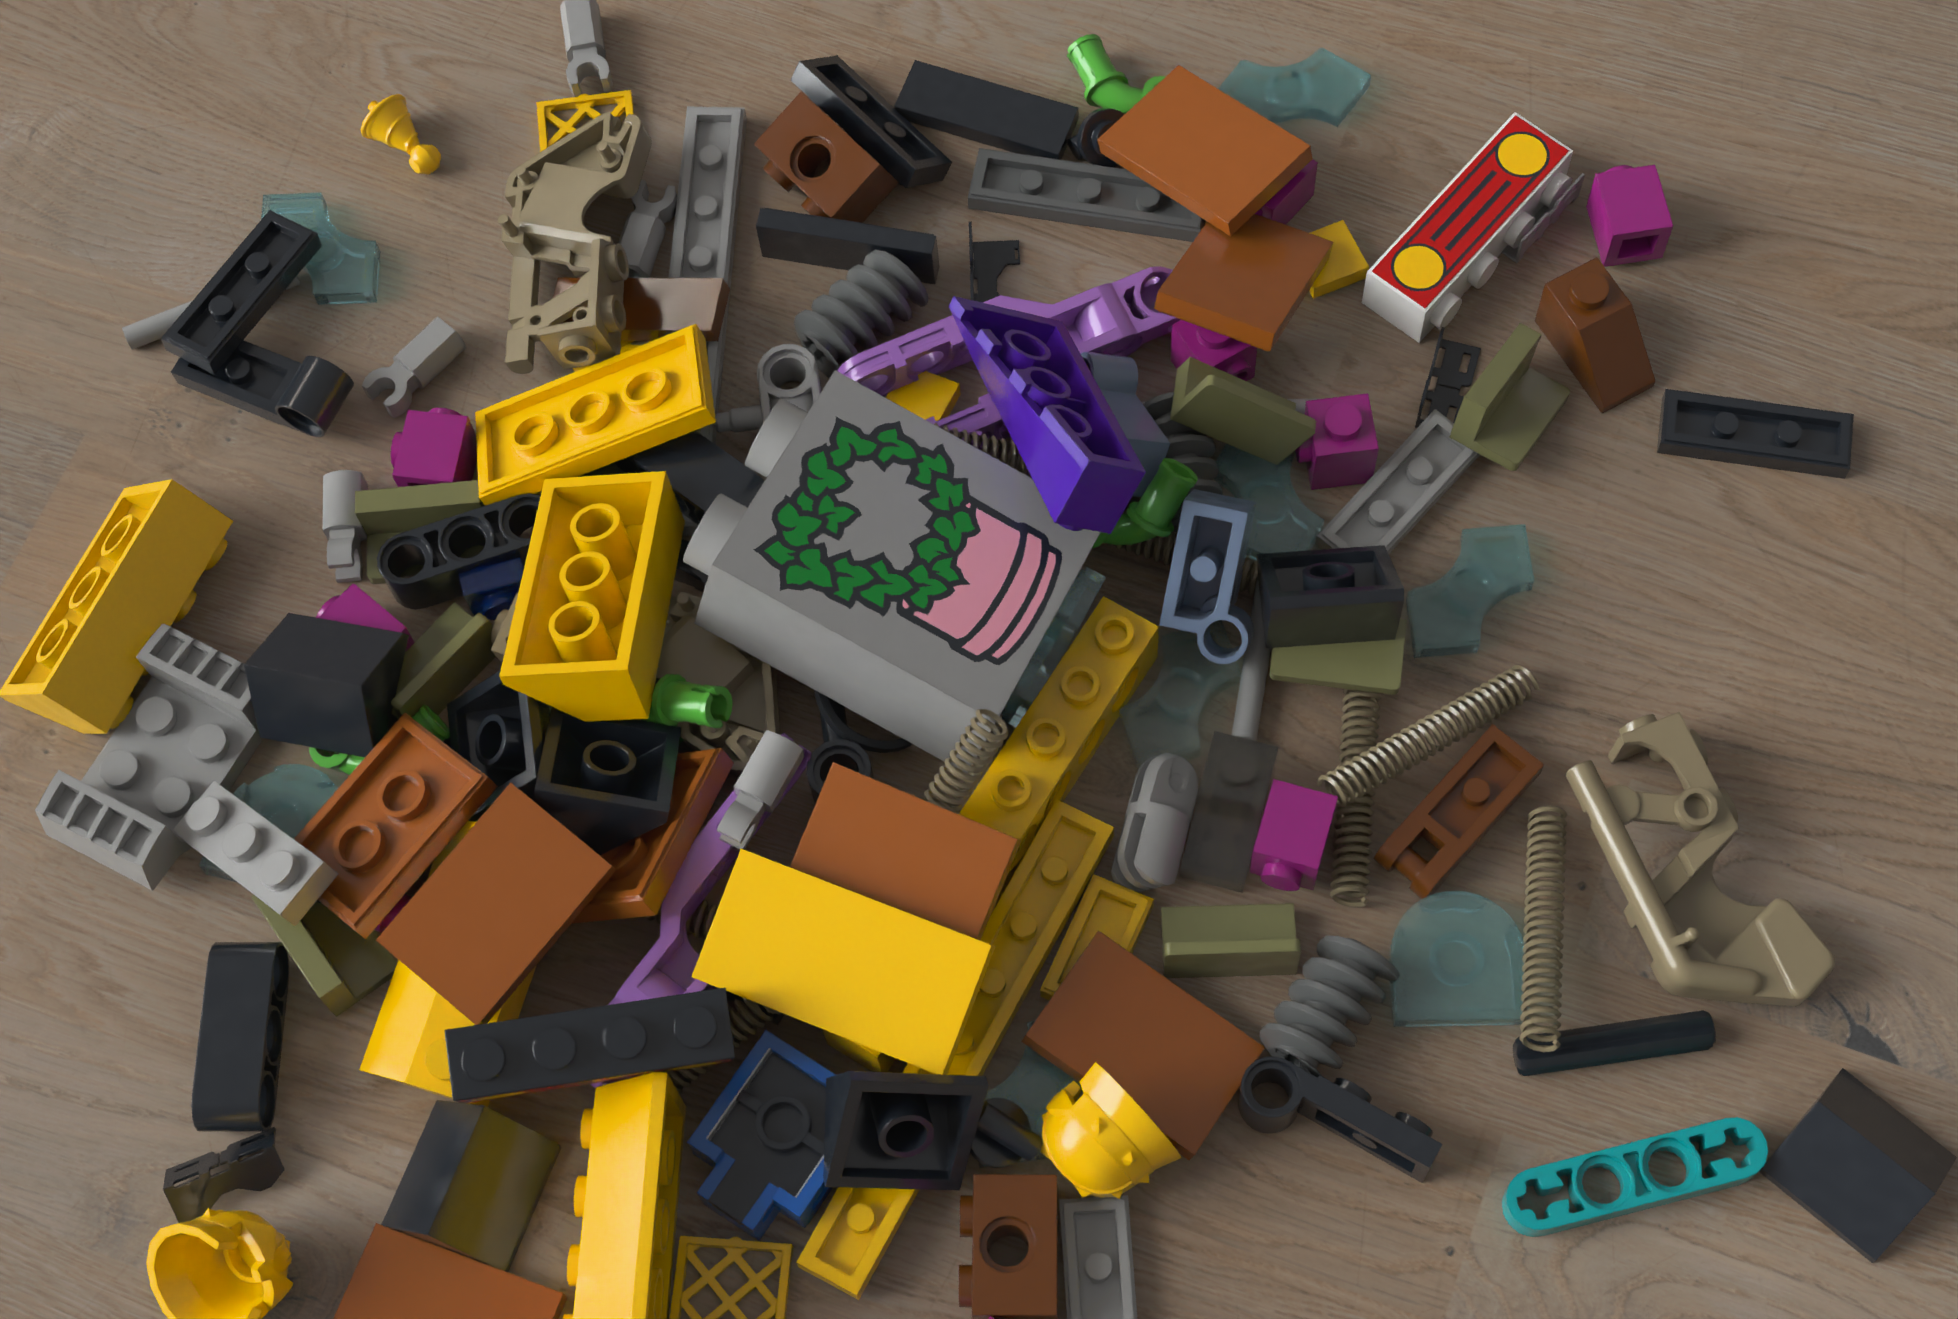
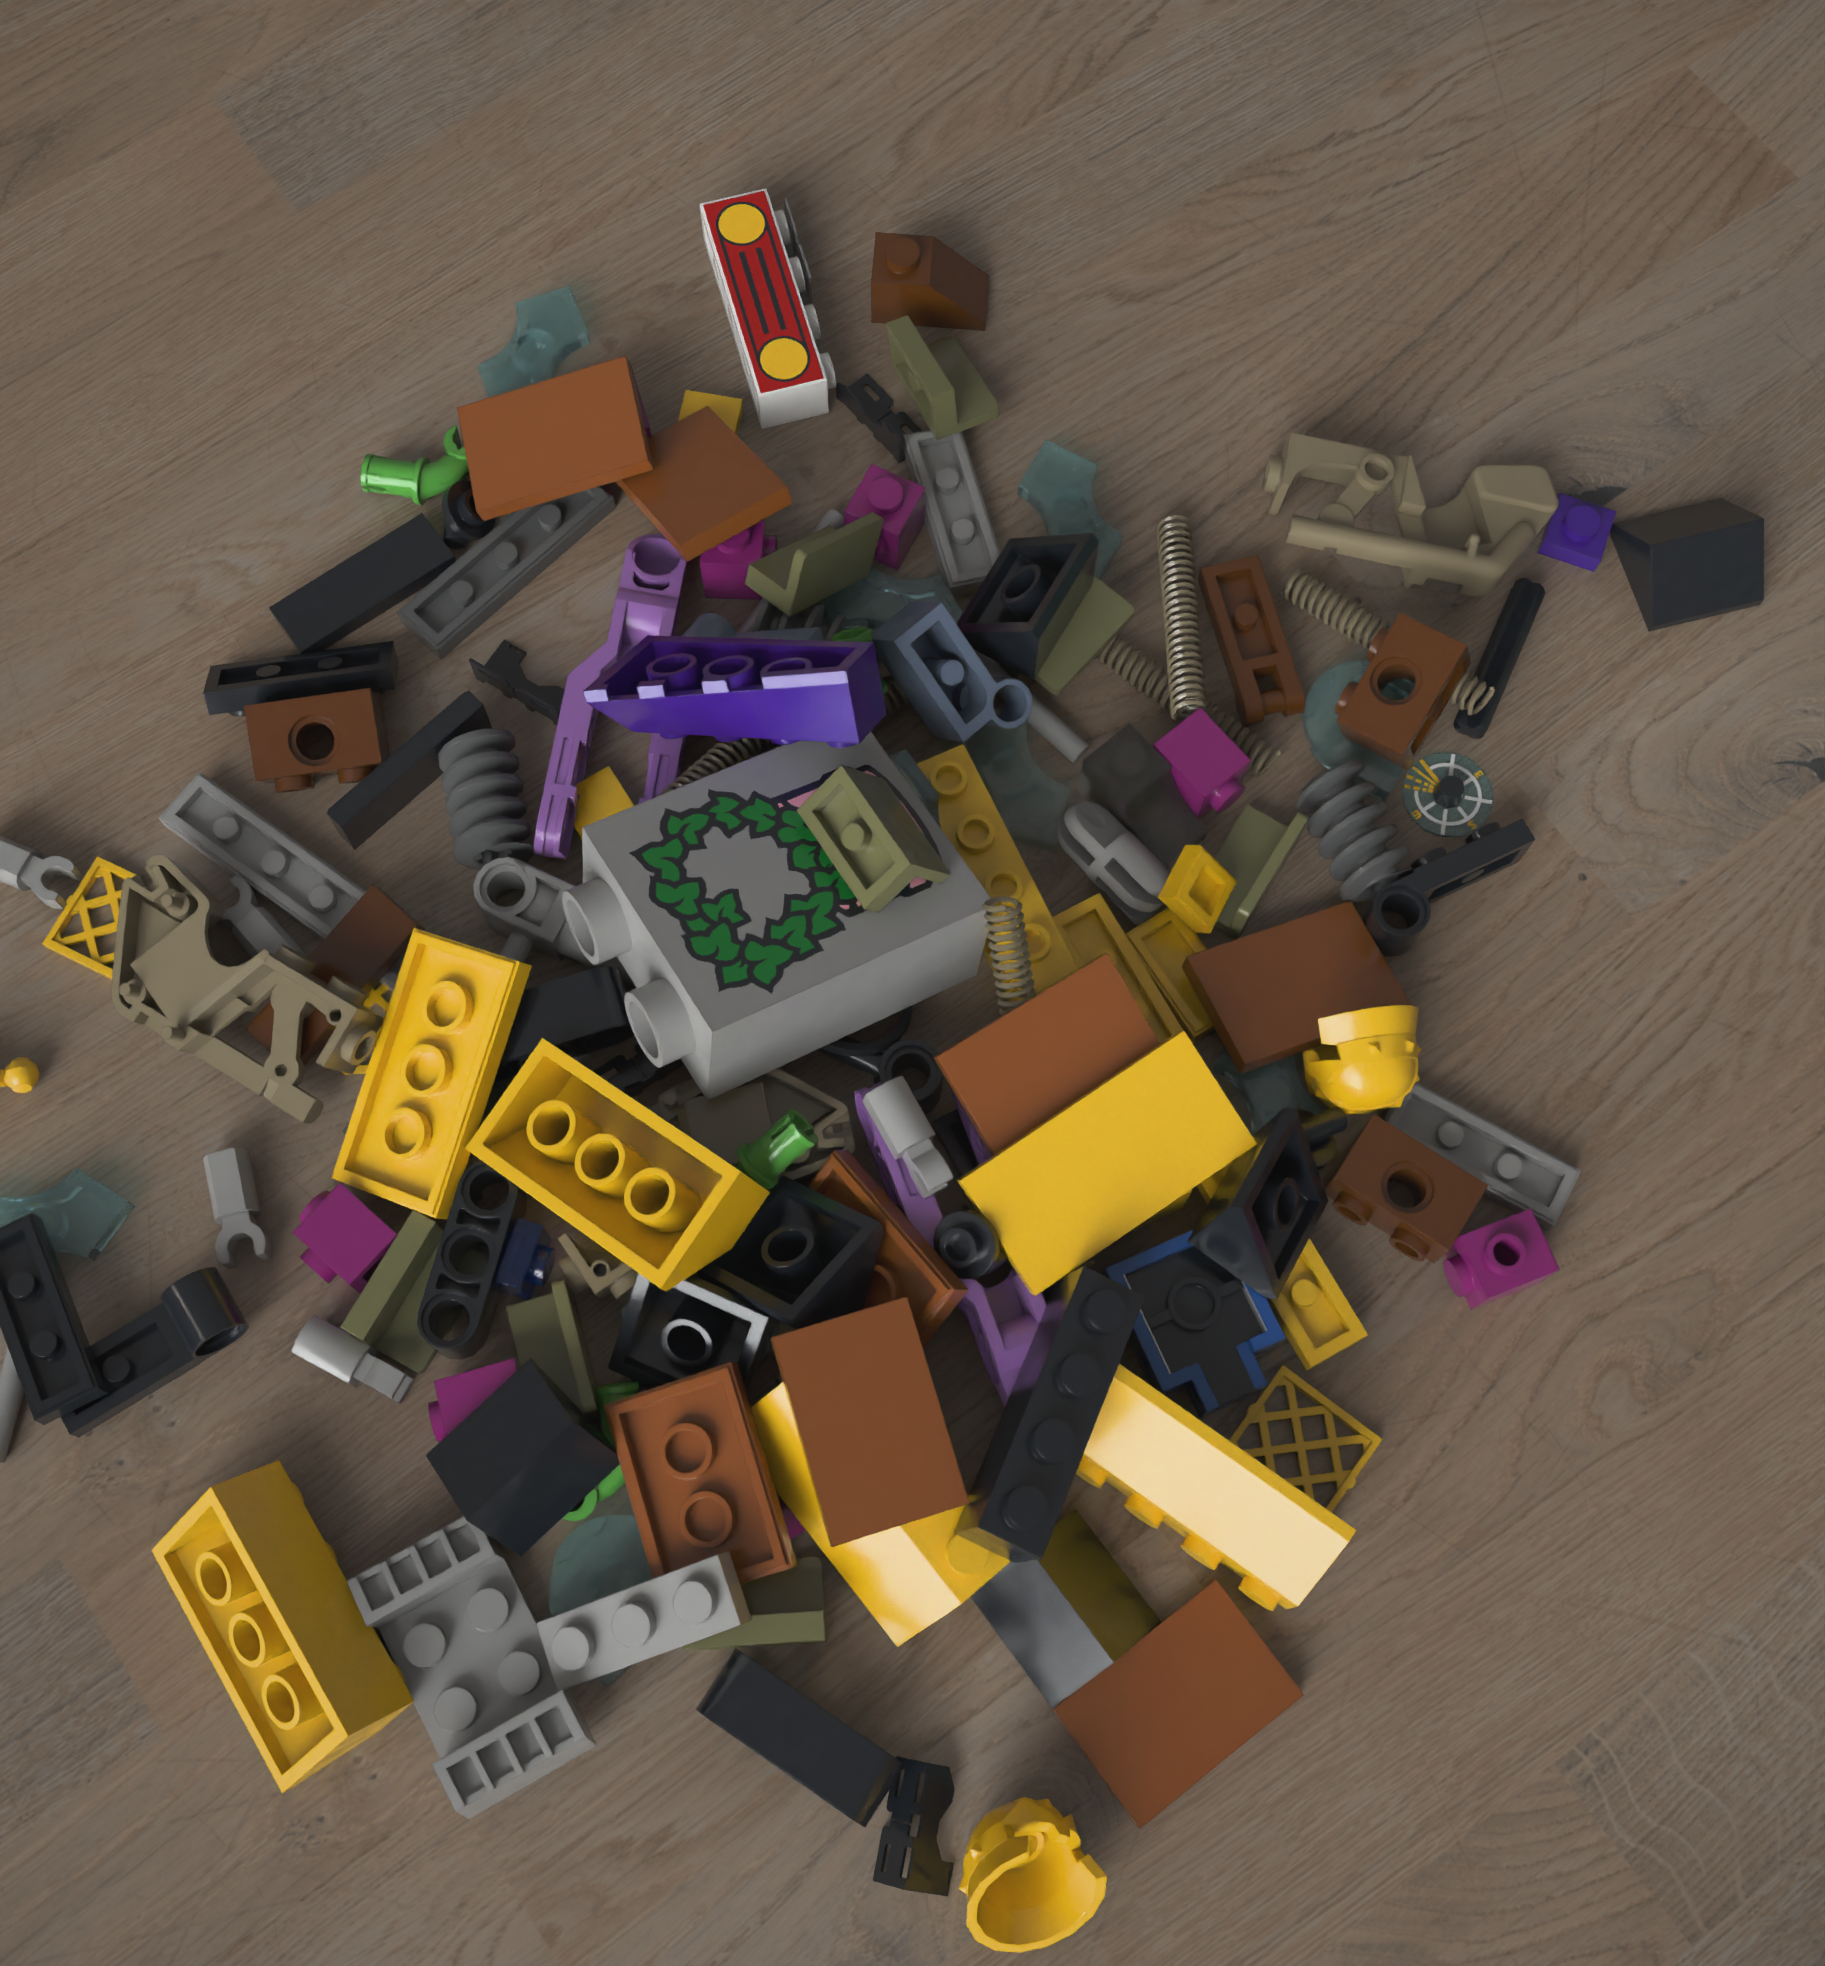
camera: 65 degrees left, 5 degrees up
(697, 894) = (968, 1243): none -> black plate
(982, 586) = (869, 837): none -> olive panel
(1168, 901) = (1197, 888): none -> yellow tile
(1443, 1079) = (1447, 794): none -> clear light blue piece
(1514, 978) = (1401, 726): none -> reddish brown brick
(1629, 215) = (845, 192): magenta brick -> none
(1636, 1183) = (1602, 710): teal beam -> none
(1755, 433) = (1080, 242): black tile -> none
(1807, 1040) = (1577, 532): none -> dark purple plate

